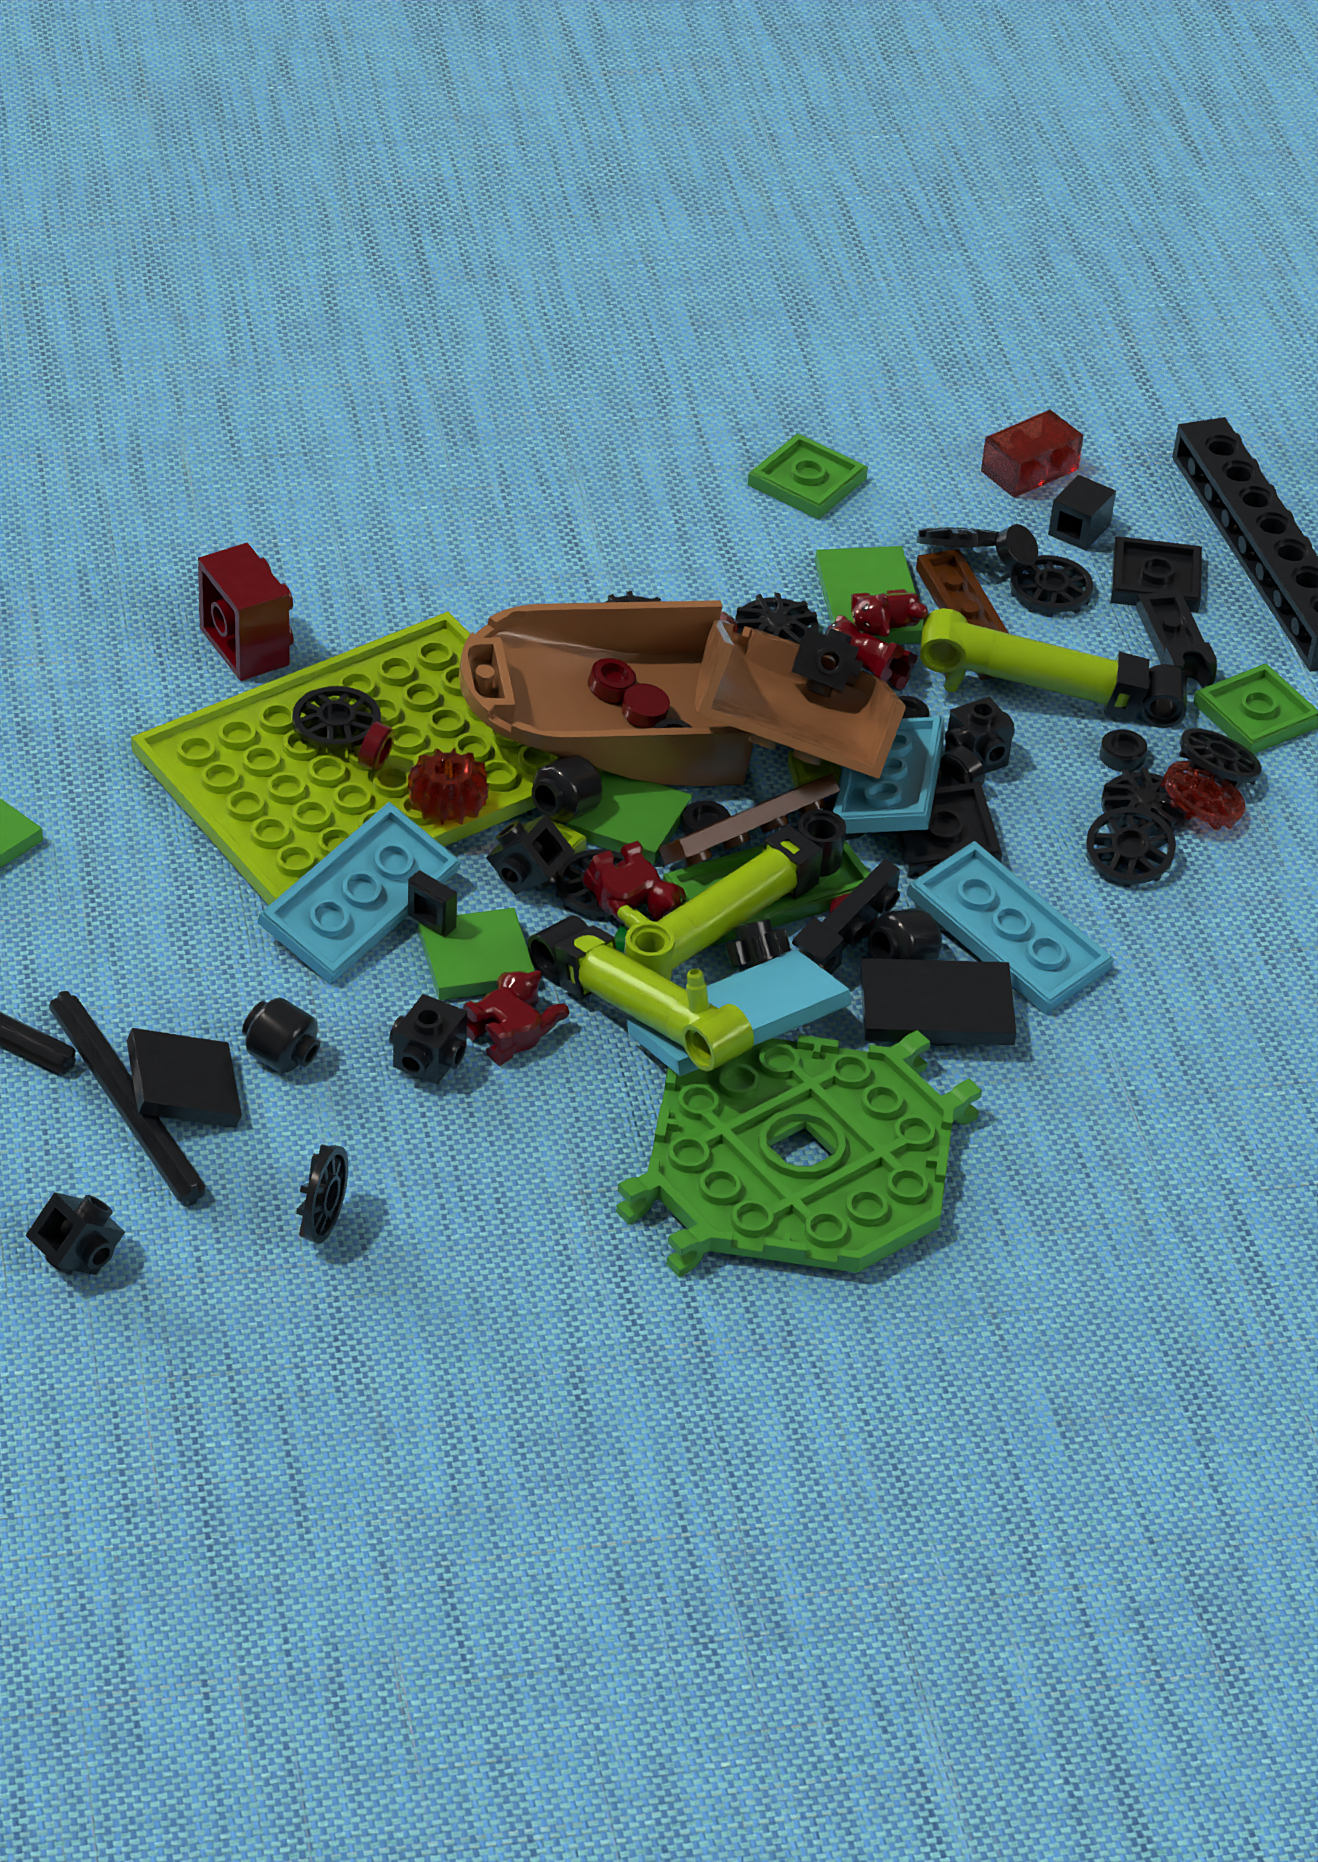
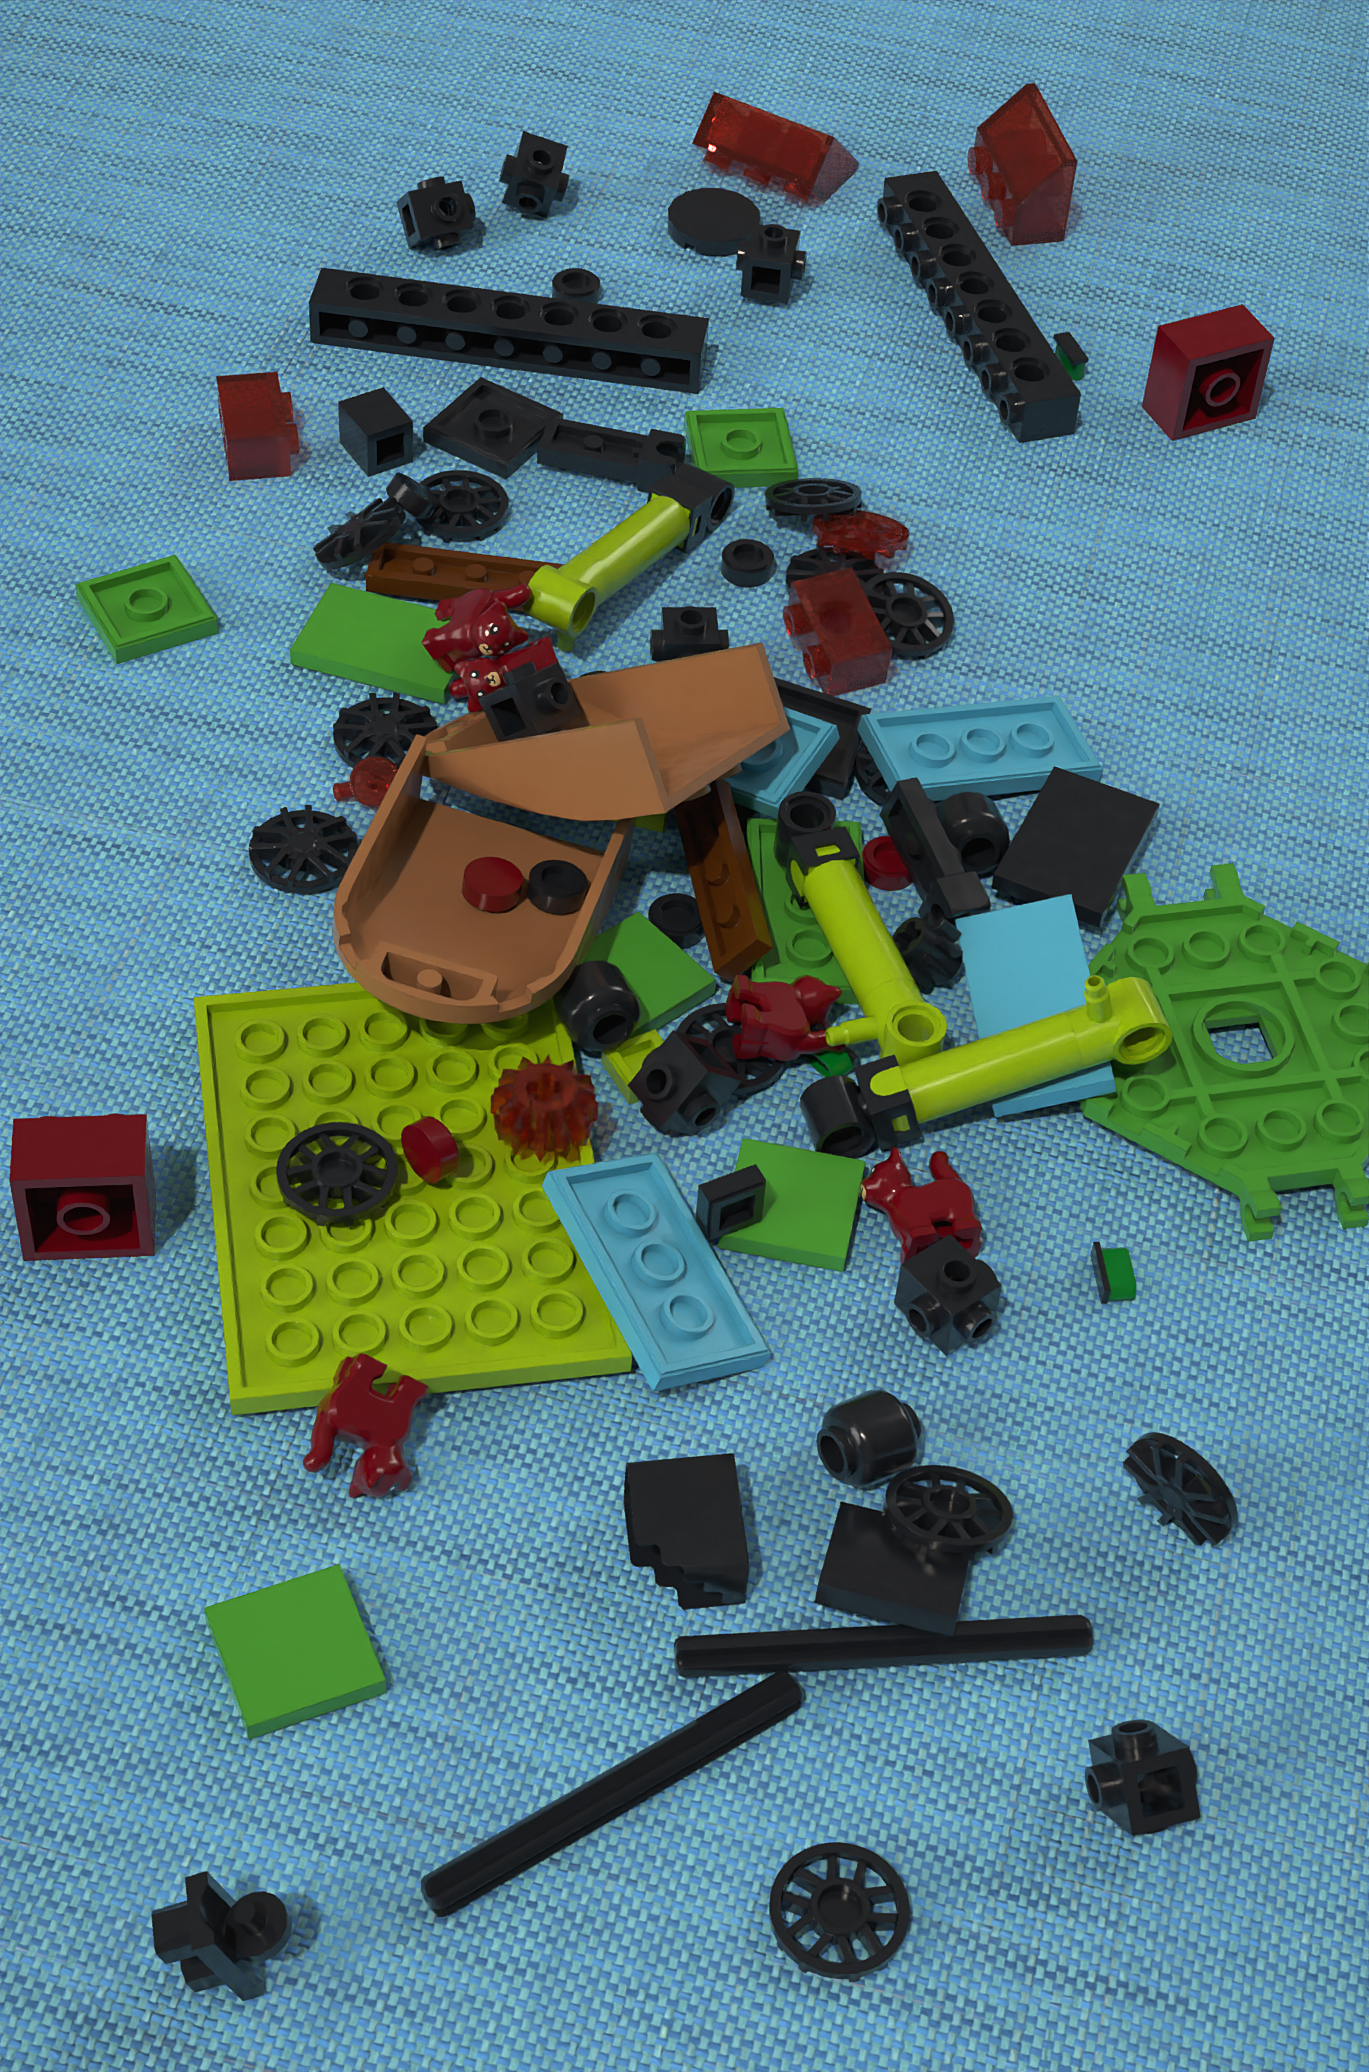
camera: 65 degrees left, 5 degrees up
(149, 802) = (369, 1420): none -> dark red animal
(158, 970) = (689, 1527): none -> black piece
(253, 1098) = (948, 1510): none -> black wheel
(527, 1138) = (1113, 1273): none -> green piece
(611, 679) = (437, 893): dark red tile -> none
(1062, 807) = (837, 632): none -> clear red brick

